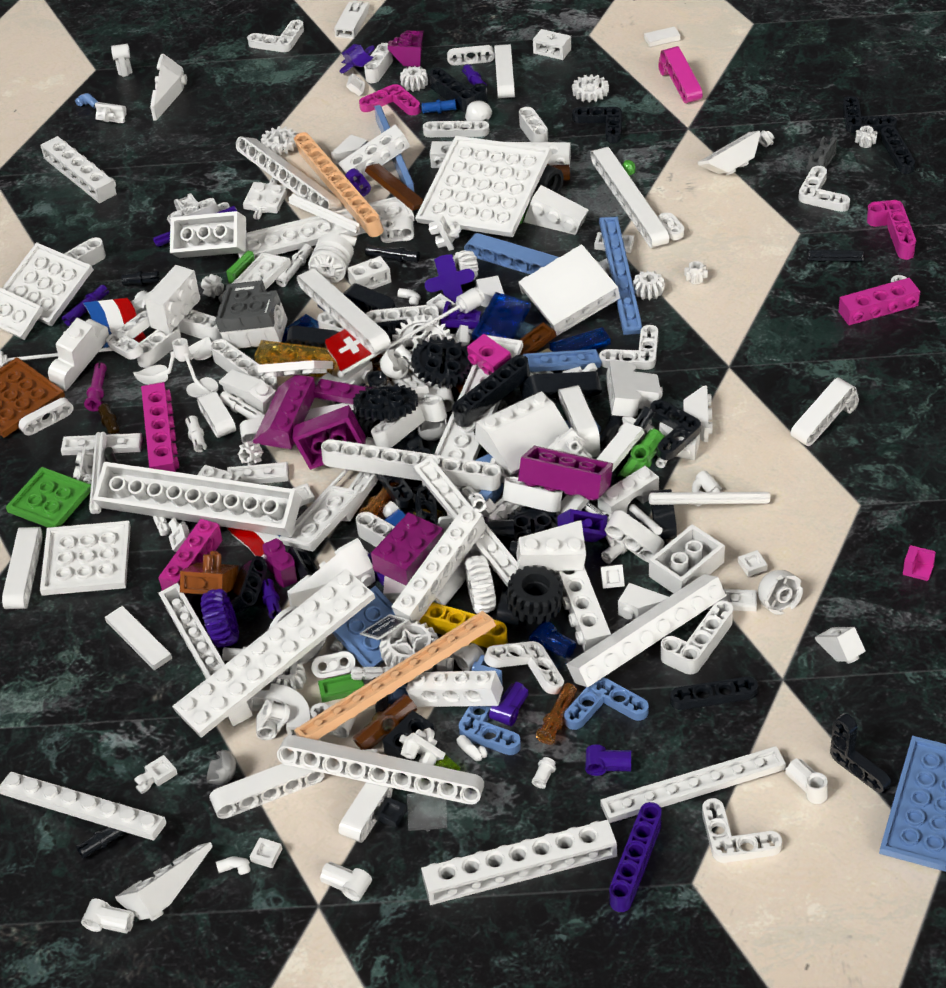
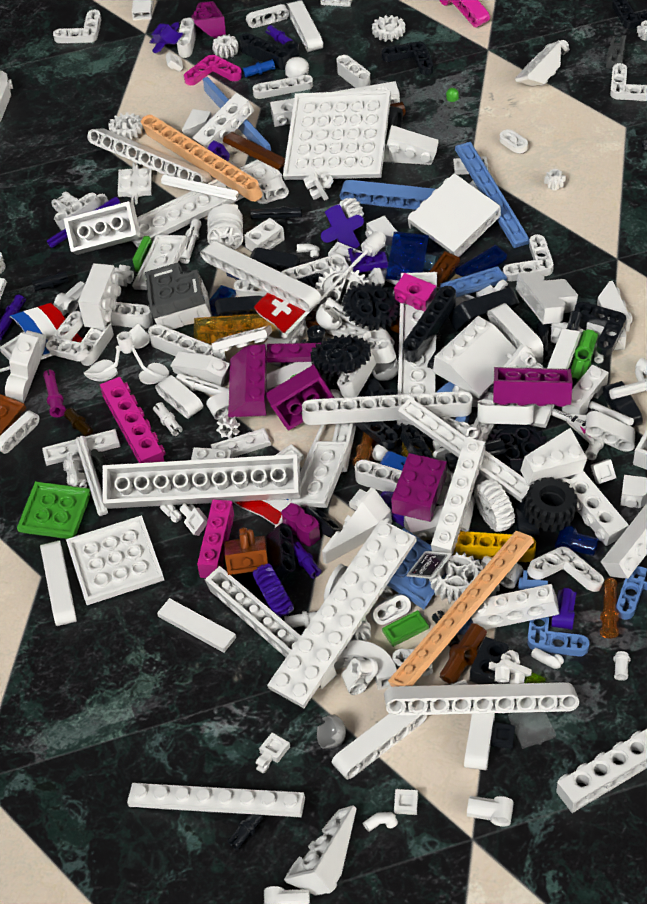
camera: 15 degrees left, 5 degrees up
(367, 673) = (429, 609): white axle -> none
(592, 523) = (557, 426): dark purple brick -> none
(629, 197) = (466, 121): white beam -> none
(648, 285) = (519, 198): white gear -> none

